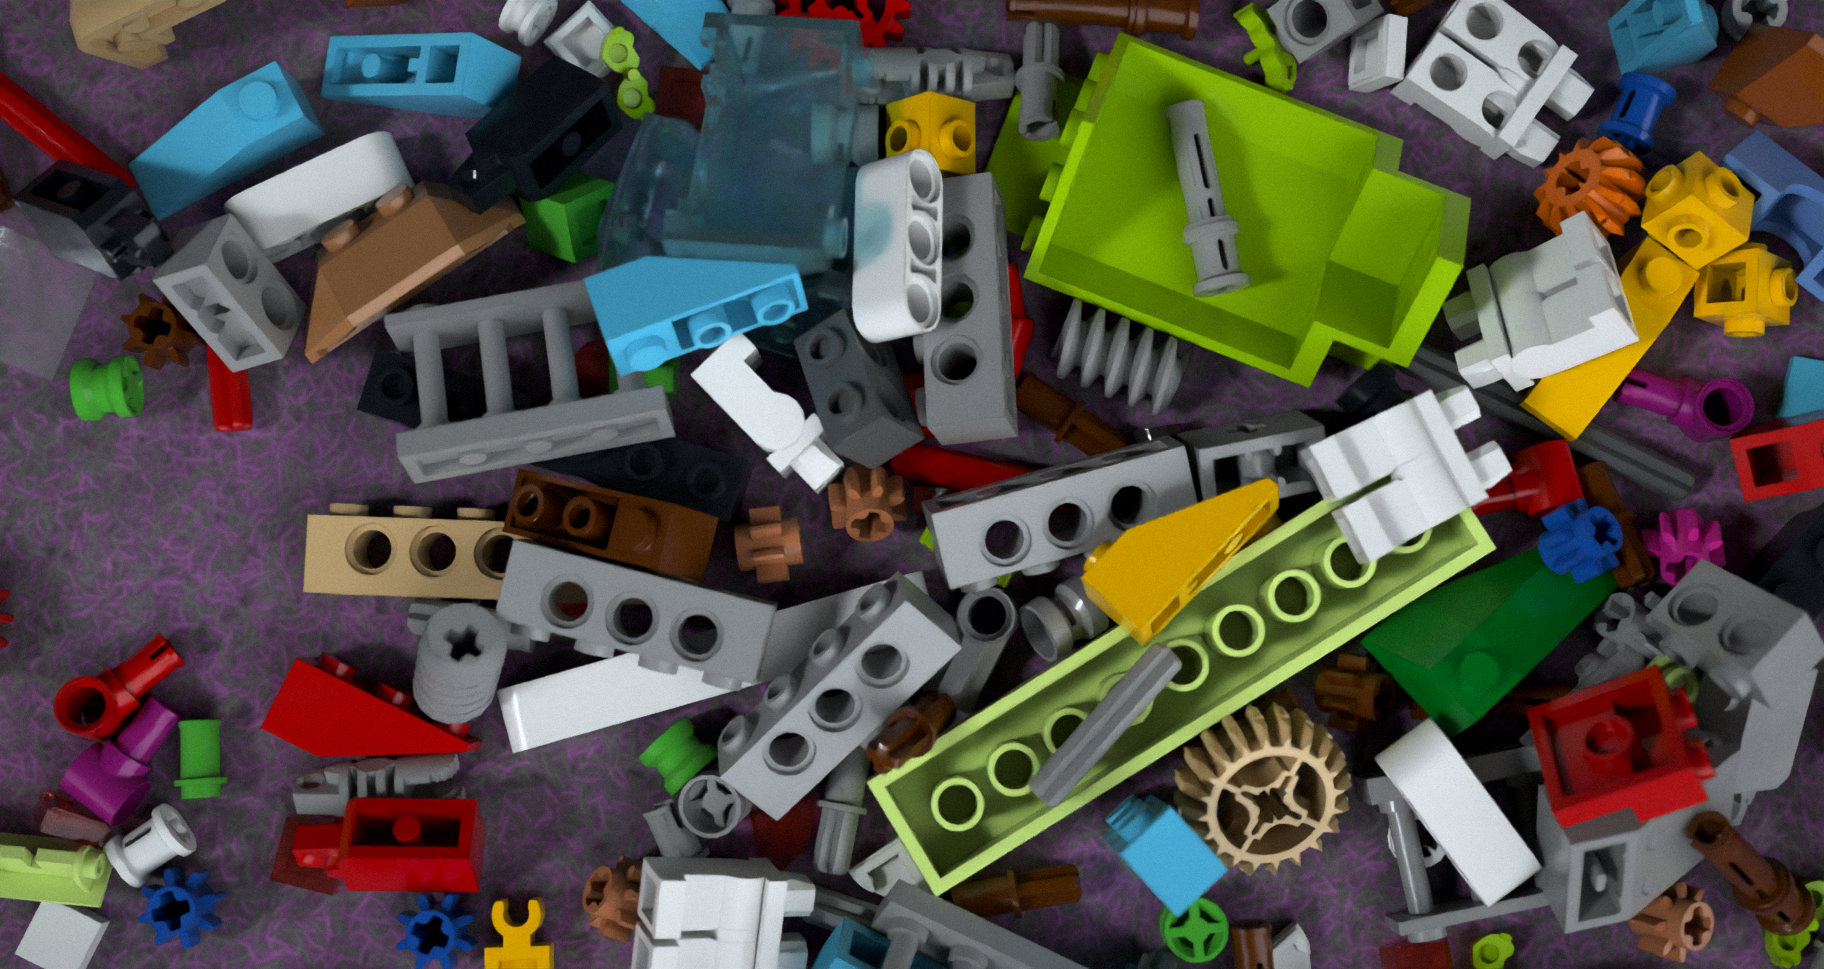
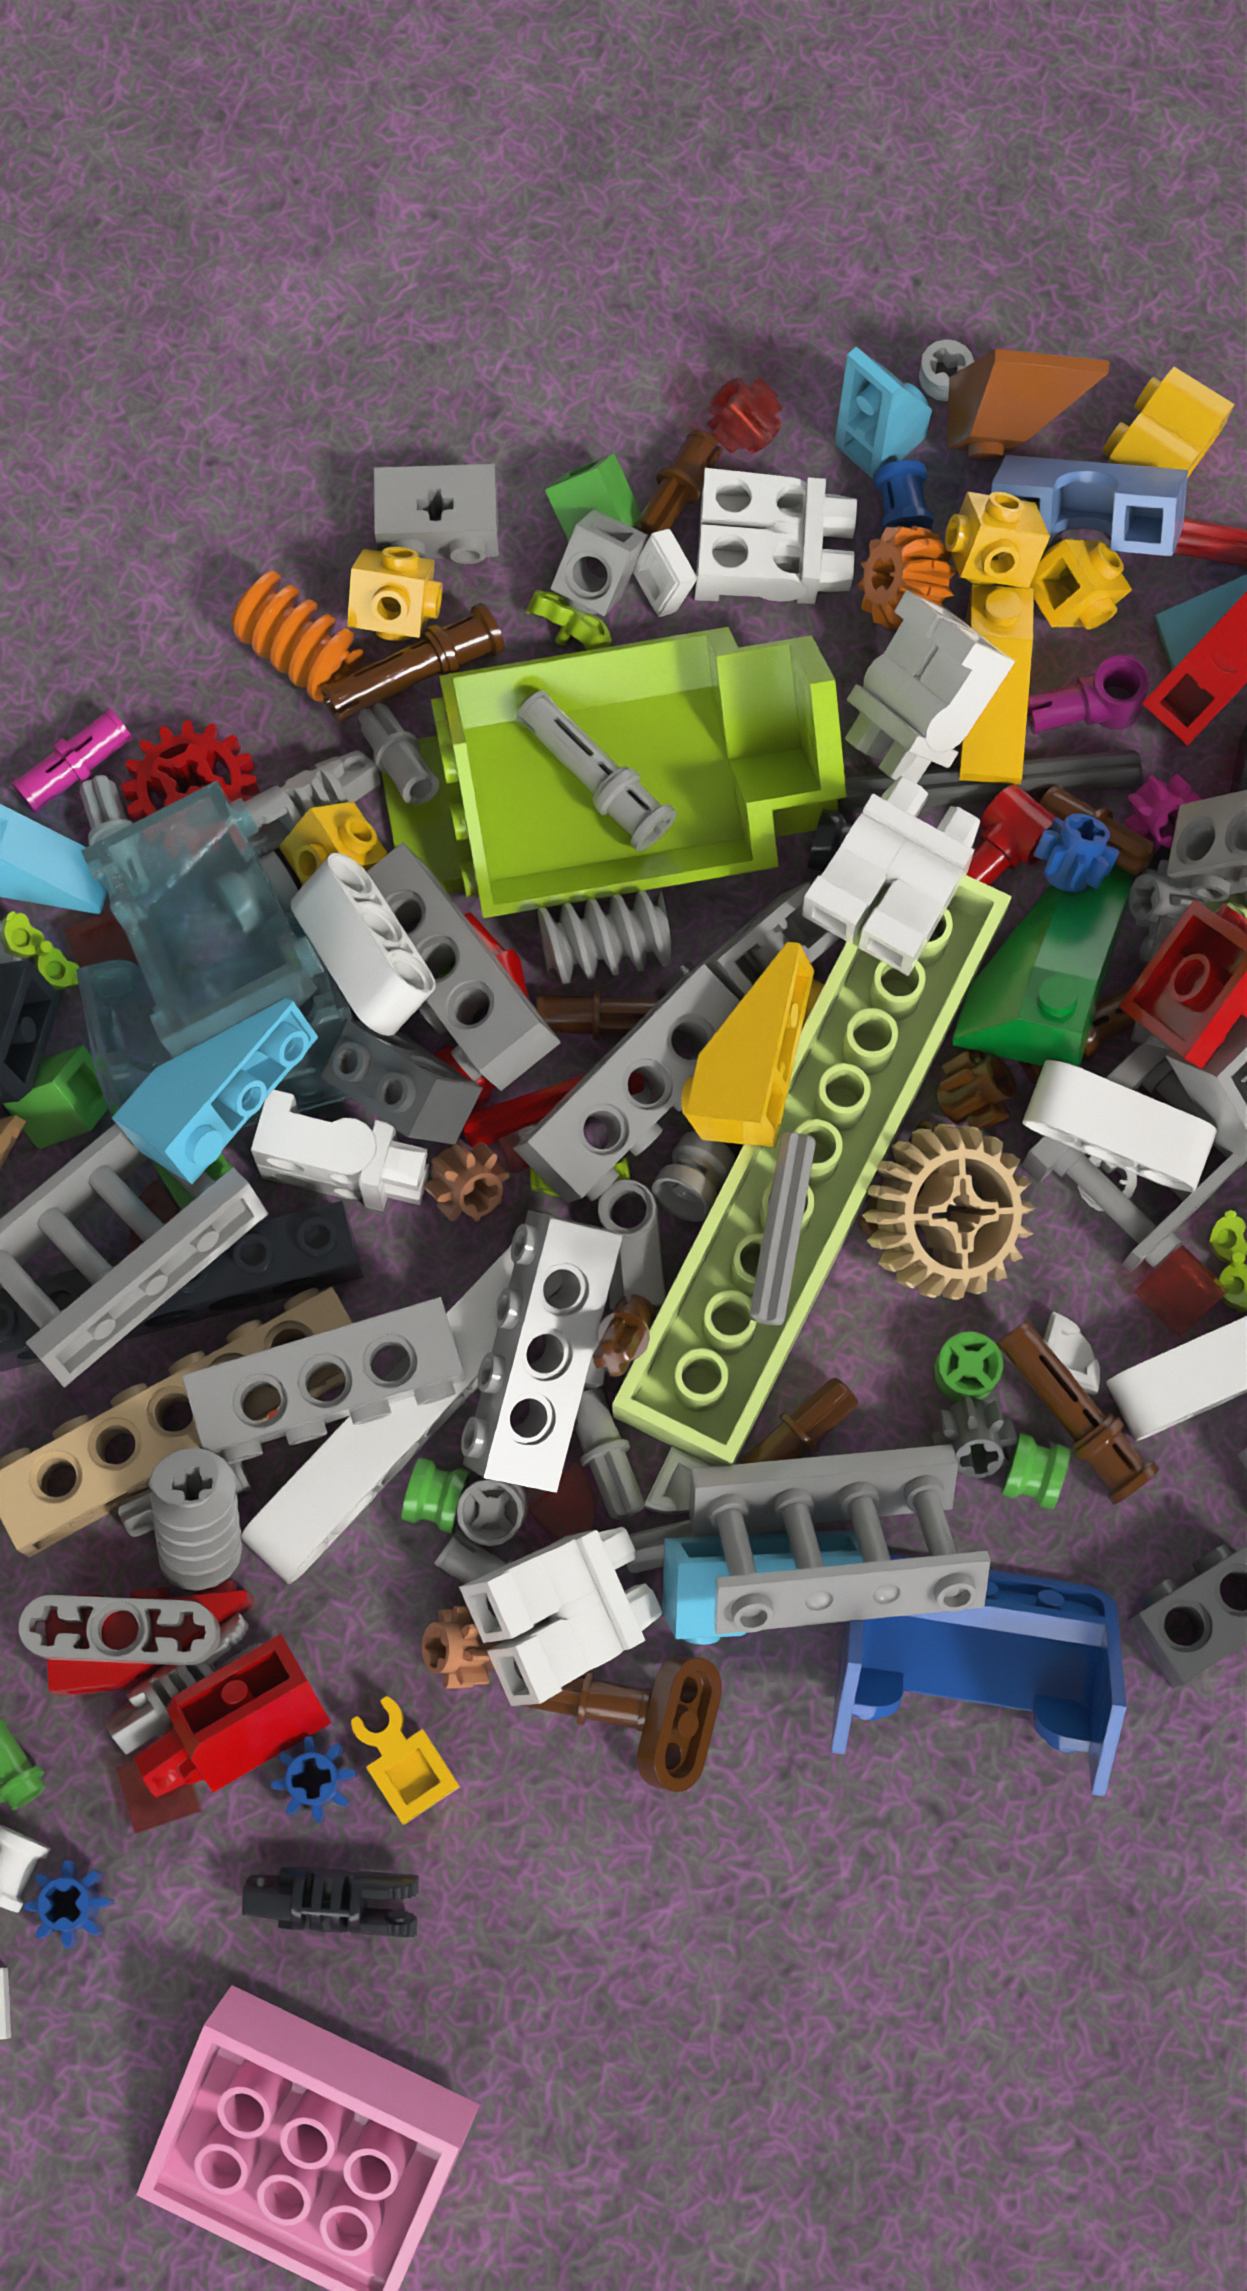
camera: 35 degrees left, 10 degrees down
(314, 674) = (71, 1610): none -> light grey beam
(611, 524) = (257, 1315): reddish brown slope -> none
(769, 544) = (404, 1266): nougat gear -> none
(1163, 851) = (895, 1303): medium azure arch -> none

